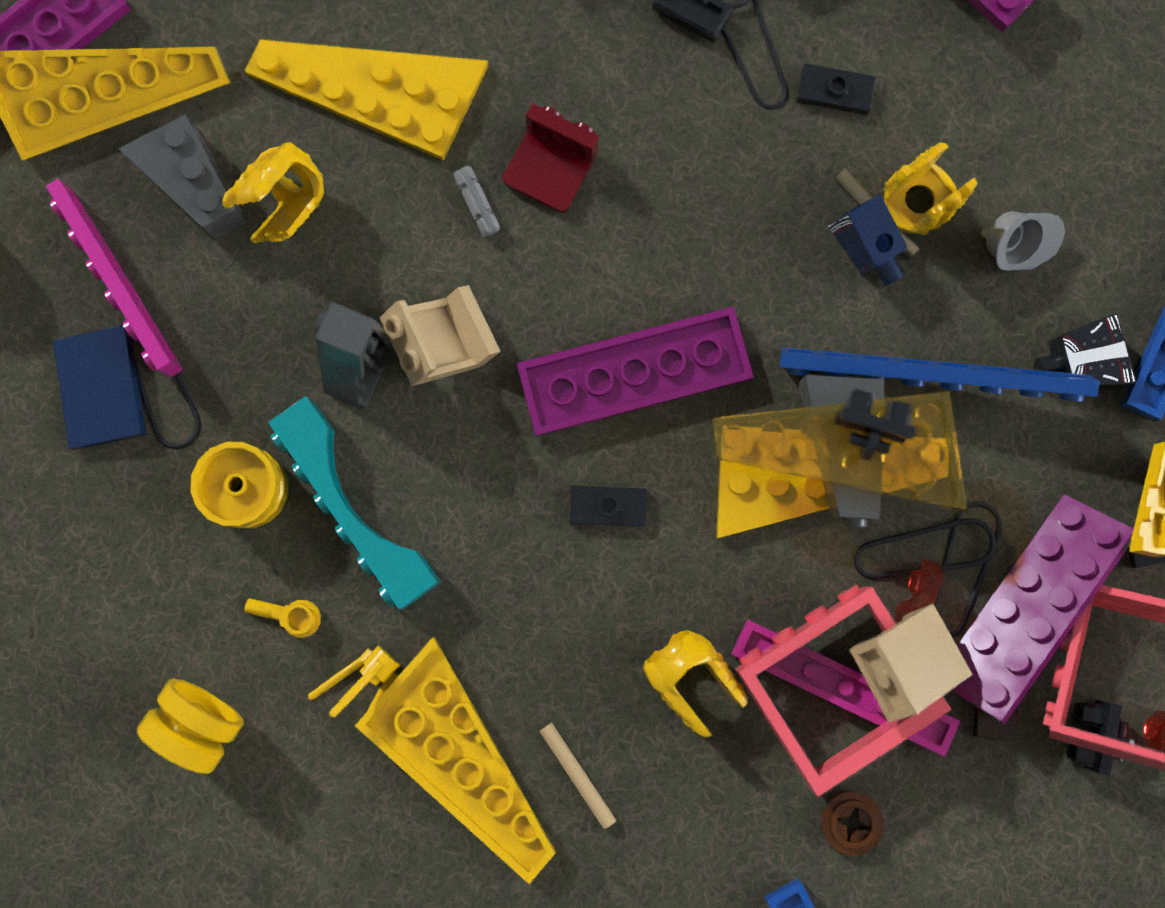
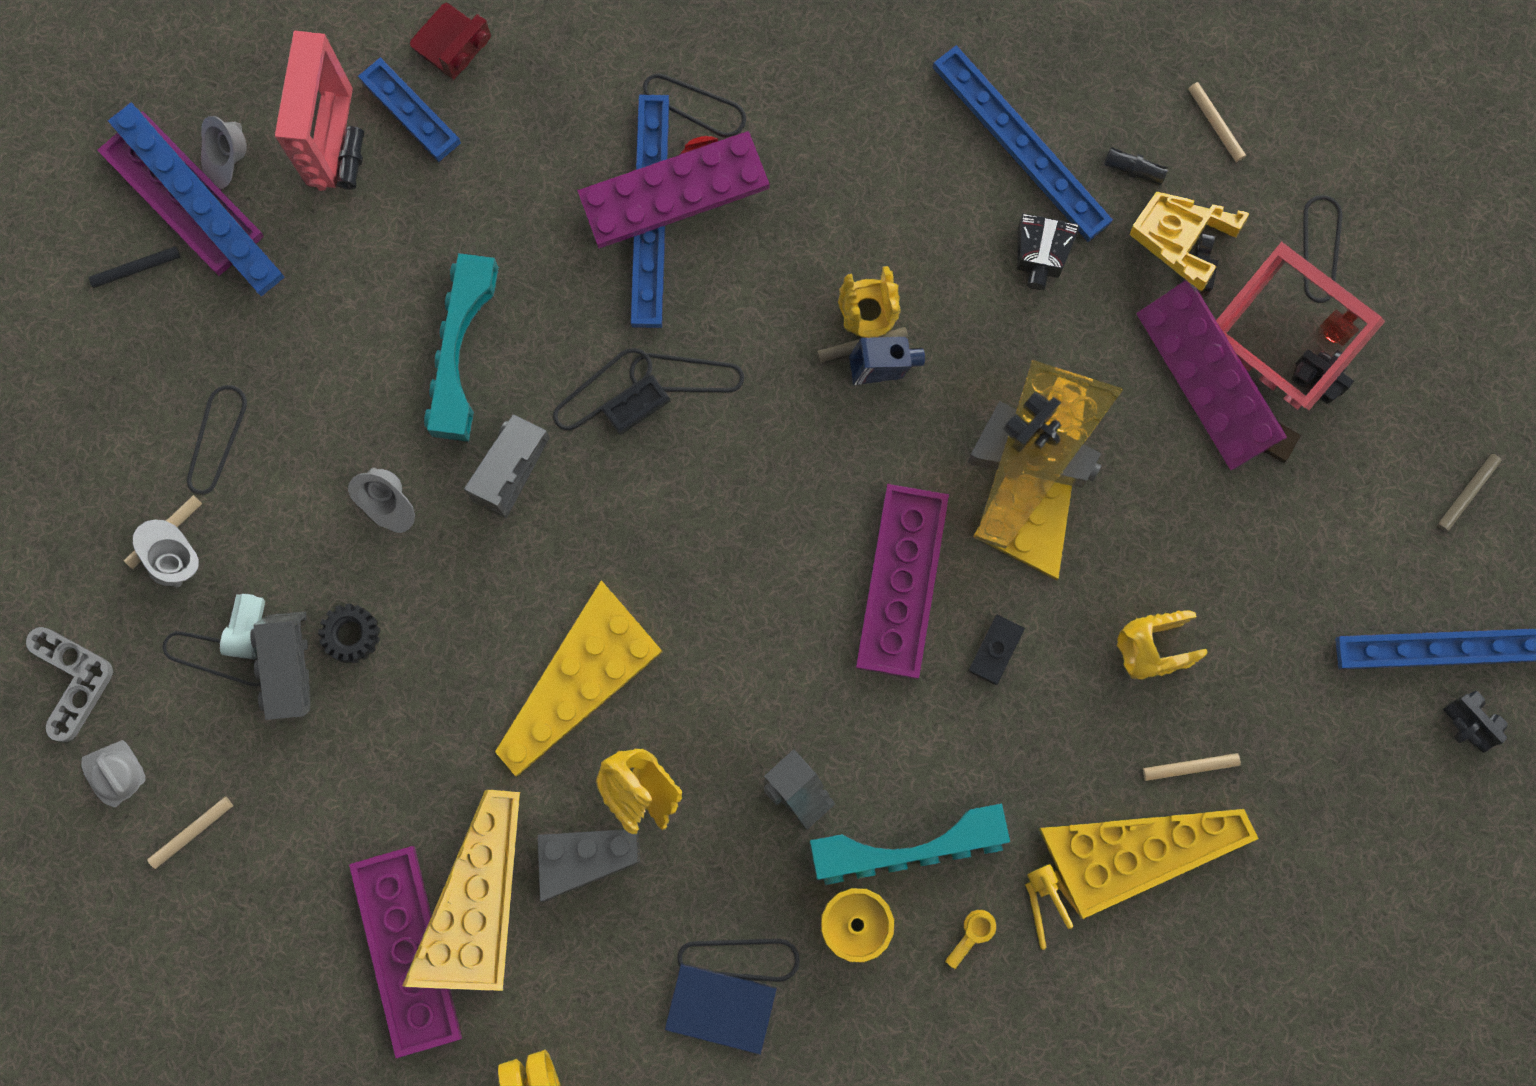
camera: 65 degrees left, 5 degrees down
(120, 290) = (625, 959): dark pink plate -> none
(190, 726) = (1030, 1044): yellow wheel -> none
(439, 336) = (811, 713): tan panel -> none
(476, 201) = (710, 640): light grey axle -> none
(551, 158) = (706, 567): dark red bracket -> none
(836, 89) = (751, 328): black plate -> none
(838, 685) = (1209, 538): dark pink plate -> none
(860, 839) = (1326, 579): reddish brown gear -> none
(866, 748) = (1260, 529): coral window -> none
(911, 663) = (1216, 480): tan panel -> none
(920, 532) = (1148, 437): black piece -> none
(924, 588) = (1163, 446): clear red plate -> none
(951, 375) = (1012, 353): blue plate -> none
(984, 568) = (1170, 401): black piece -> none
(1024, 239) = (934, 251): light grey piece -> none

